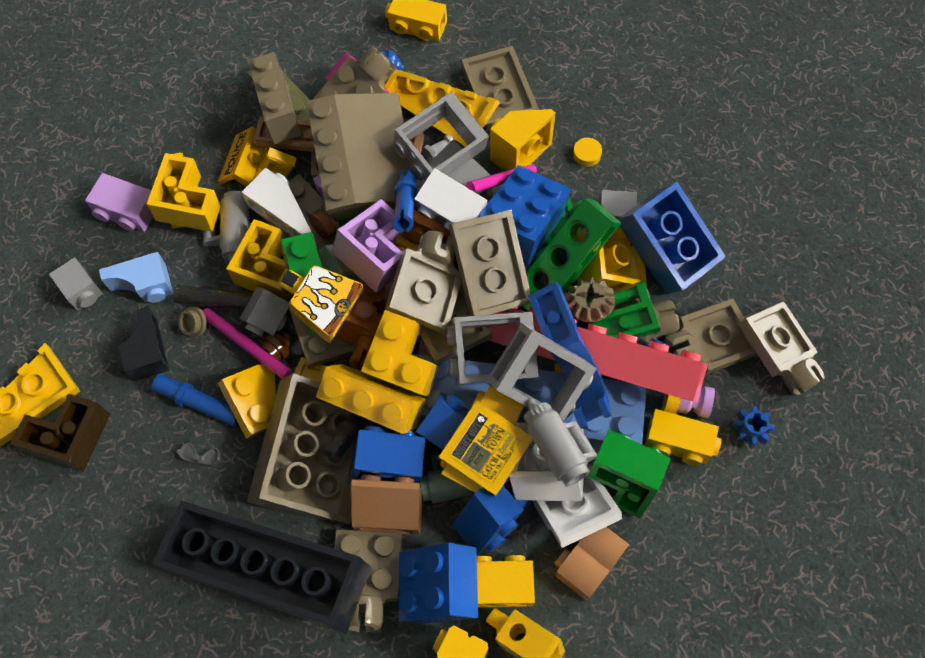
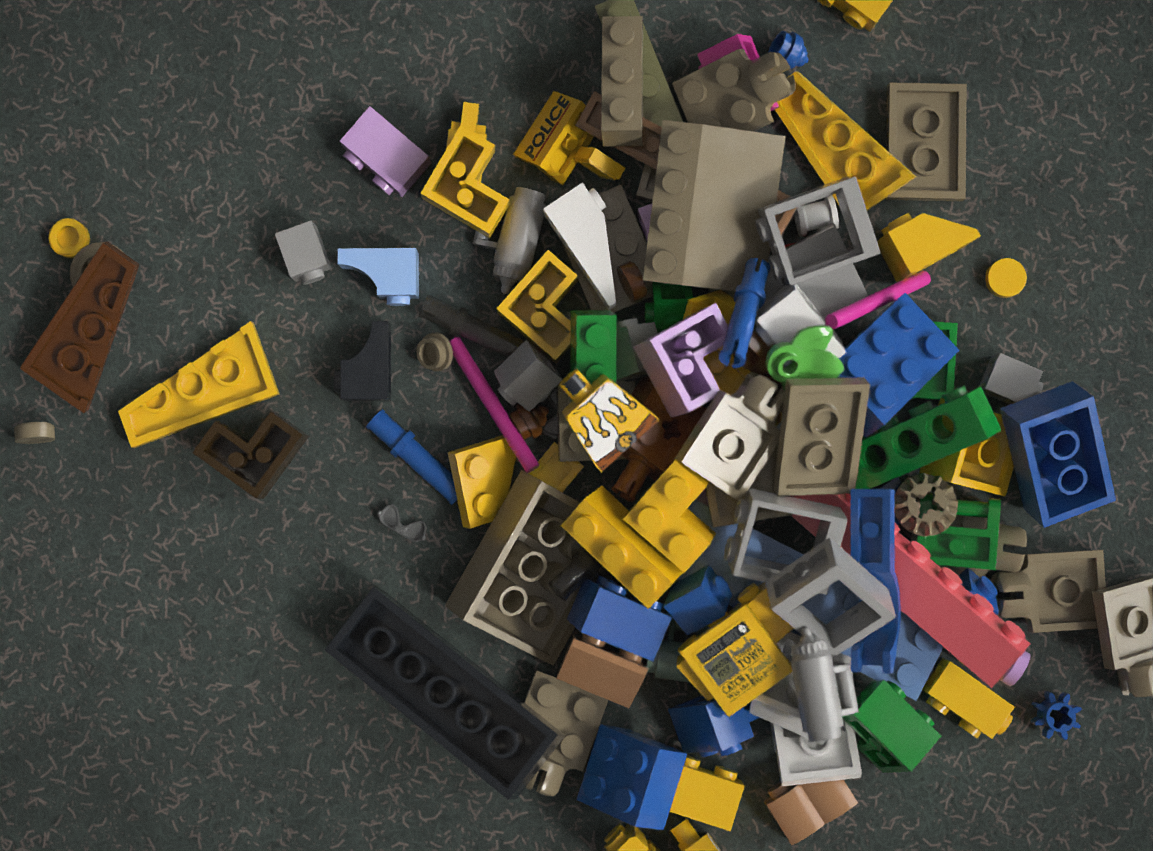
camera: 15 degrees right, 20 degrees up
(459, 205) = (807, 354): none -> bright green plate

